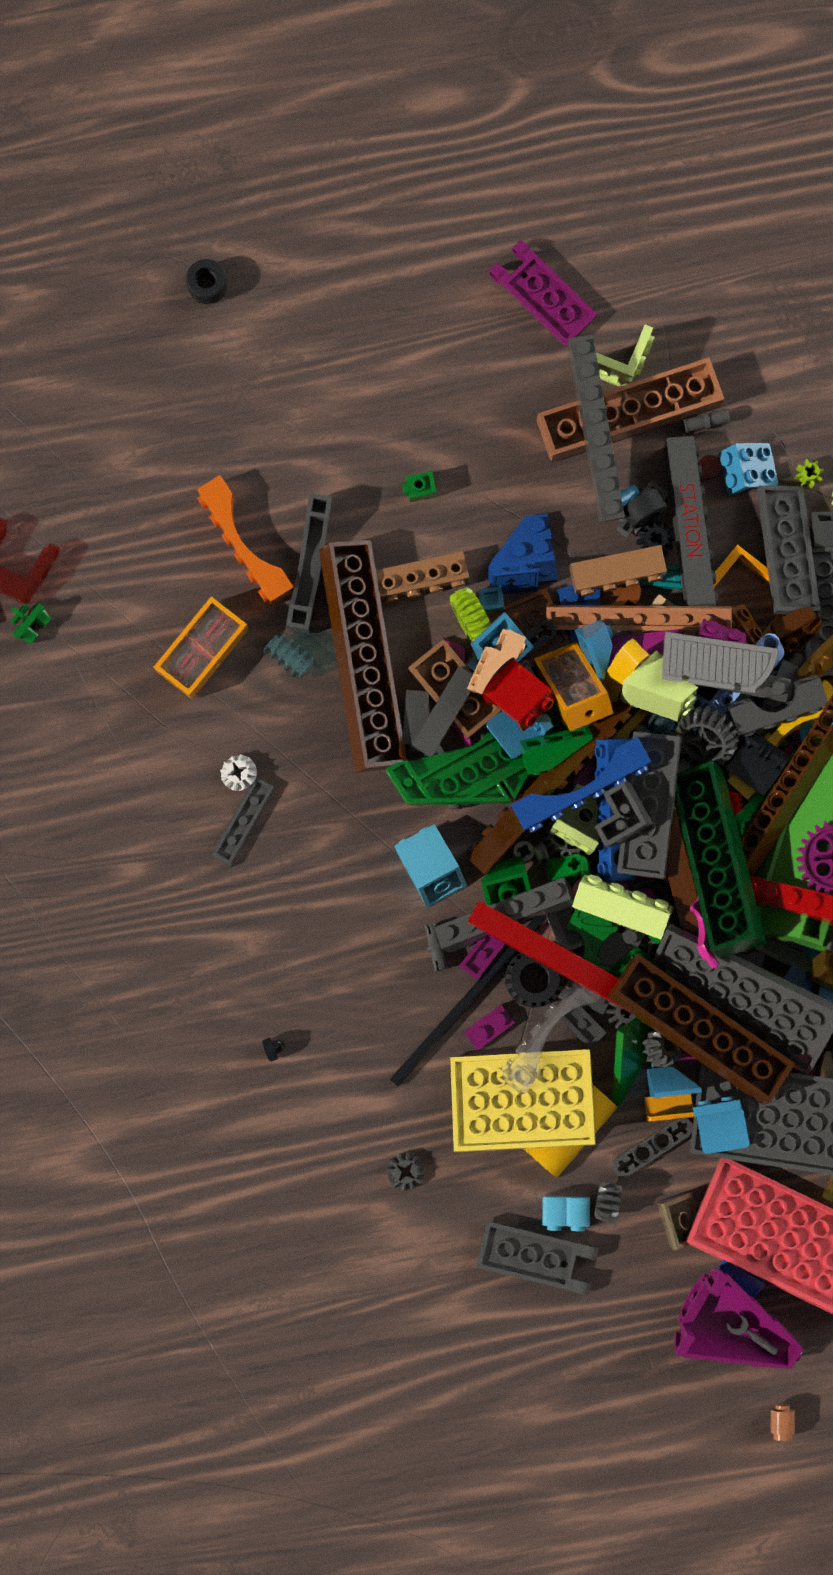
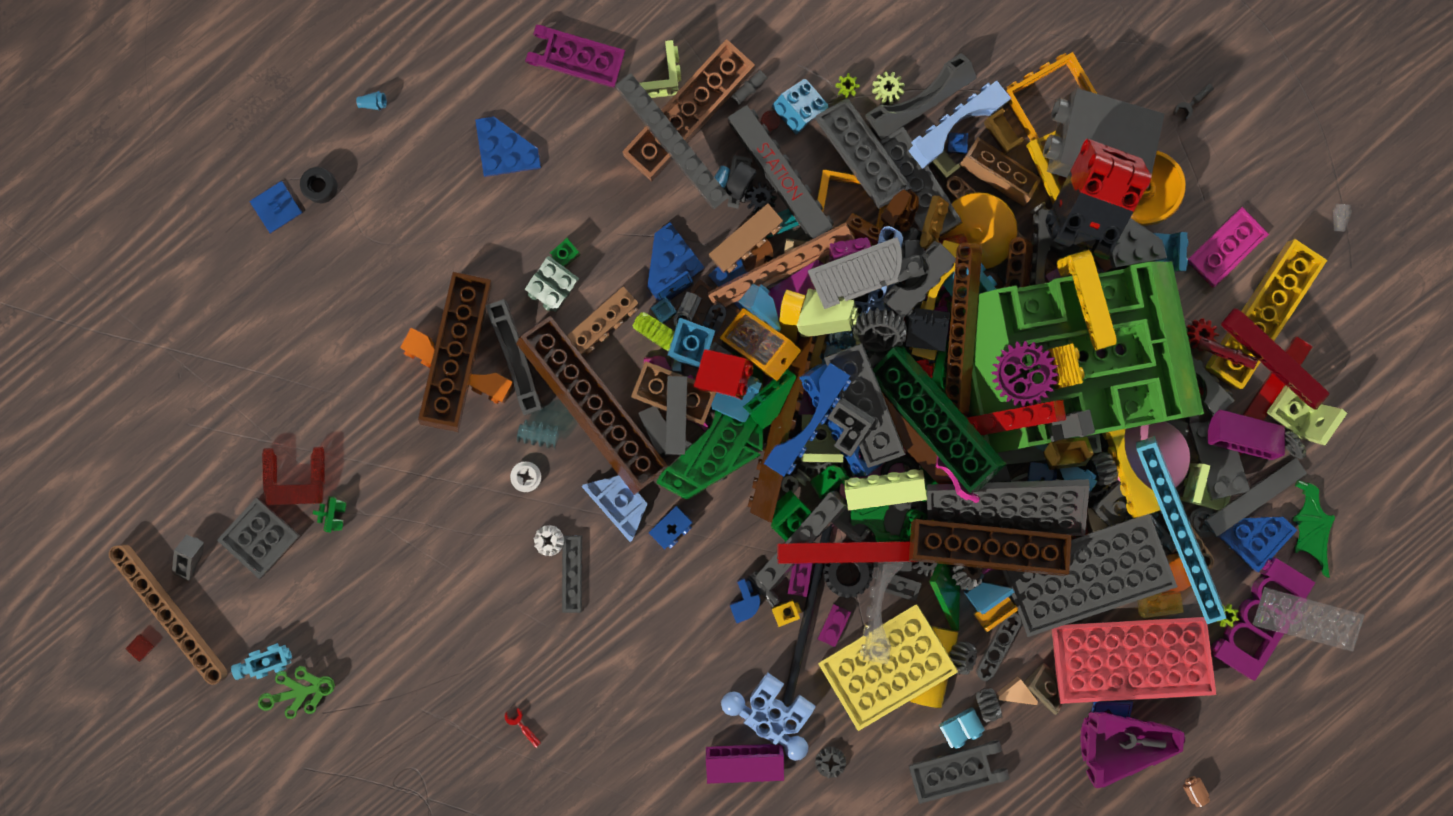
camera: 30 degrees left, 5 degrees up
(103, 959) = (525, 730): none -> red piece
(150, 281) = (275, 207): none -> blue piece
(201, 647) = (469, 465): clear brick -> none
(251, 523) = (455, 352): none -> reddish brown brick
(251, 682) = (521, 468): none -> white gear
(270, 1051) = (685, 728): black tile -> none
(309, 227) = (372, 101): none -> dark azure cone
(313, 1121) = (744, 763): none -> magenta brick
(333, 774) = (618, 503): none -> light blue wing
(361, 825) = (660, 533): none -> blue brick
(377, 1132) = (799, 711): none -> light blue connector
(389, 510) = (551, 284): none -> plate
(408, 955) = (748, 606): none -> blue brick
(417, 348) = (504, 149): none -> blue plate
(430, 865) = (726, 532): medium azure slope -> none
(439, 978) = (783, 619): none -> yellow brick
(508, 646) = (696, 343): light nougat slope -> none
(519, 608) = (688, 307): none -> dark grey piece
(609, 1136) = (963, 657): none -> dark grey gear
(647, 1206) = (1016, 692): none -> light nougat slope
(722, 1125) = (1041, 605): dark azure bracket -> none

